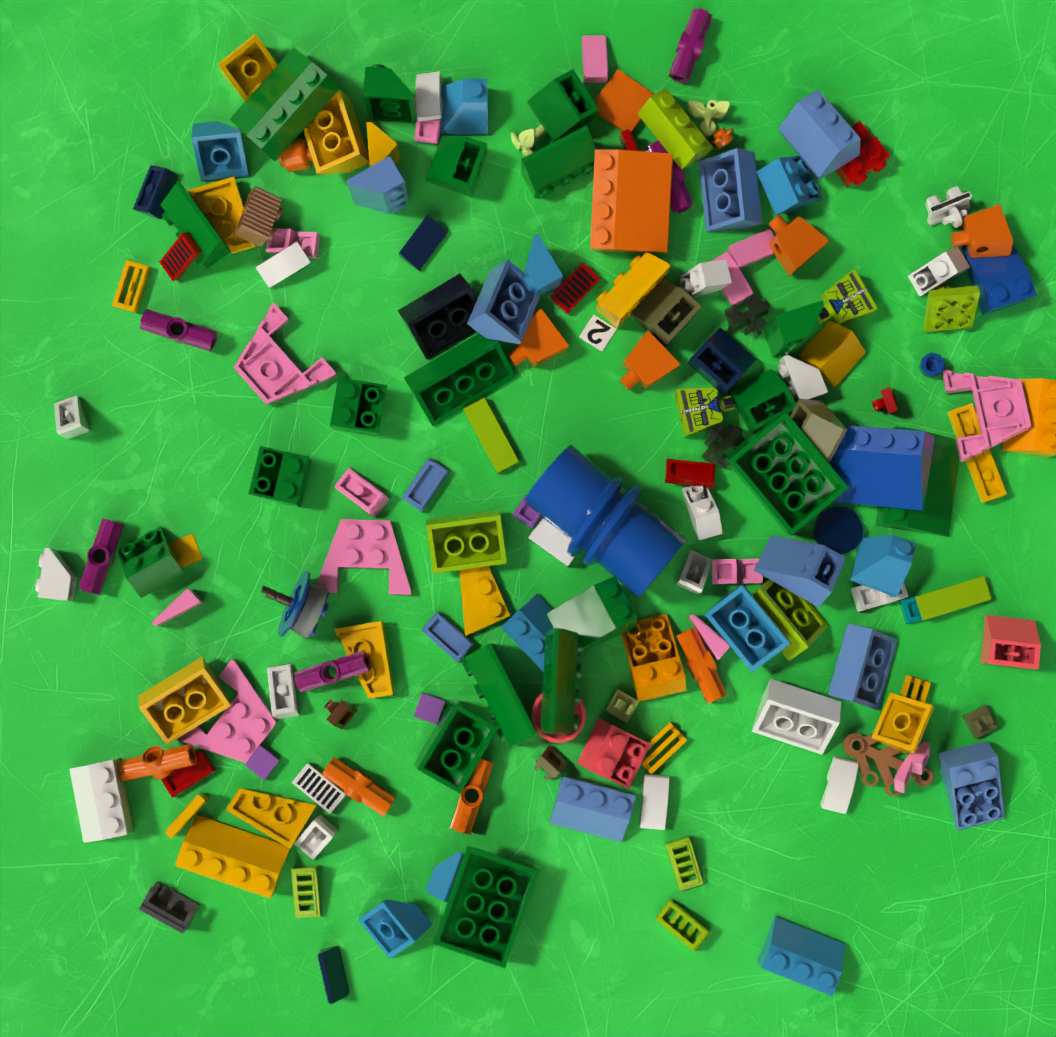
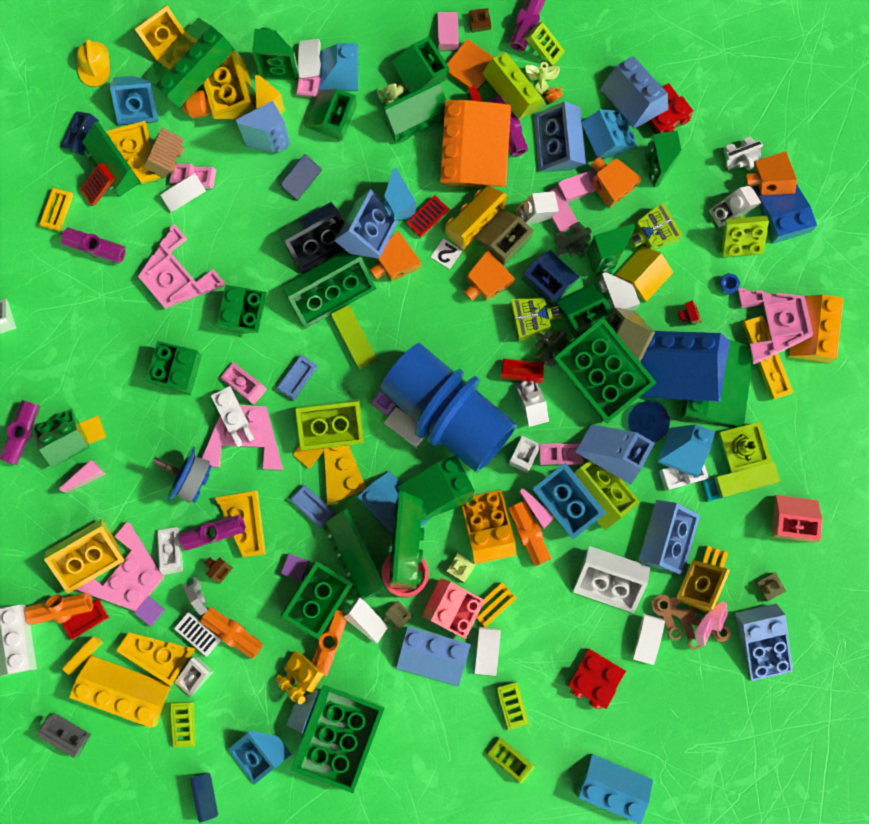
camera: 10 degrees right, 5 degrees down
(168, 105) = (93, 63): none -> yellow piece
(315, 745) = (196, 596): none -> light grey plate
(350, 531) = (232, 414): none -> white hinge
(440, 580) = (308, 457): none -> yellow sticker
(444, 831) = (303, 672): none -> yellow plate
(513, 769) = (366, 620): none -> white slope
(632, 45) = (479, 20): none -> reddish brown tile
(696, 70) = (531, 38): none -> lime slope
(779, 832) = (596, 679): none -> red plate
(853, 210) = (662, 155): none -> green slope
(960, 557) = (753, 444): none -> lime plate

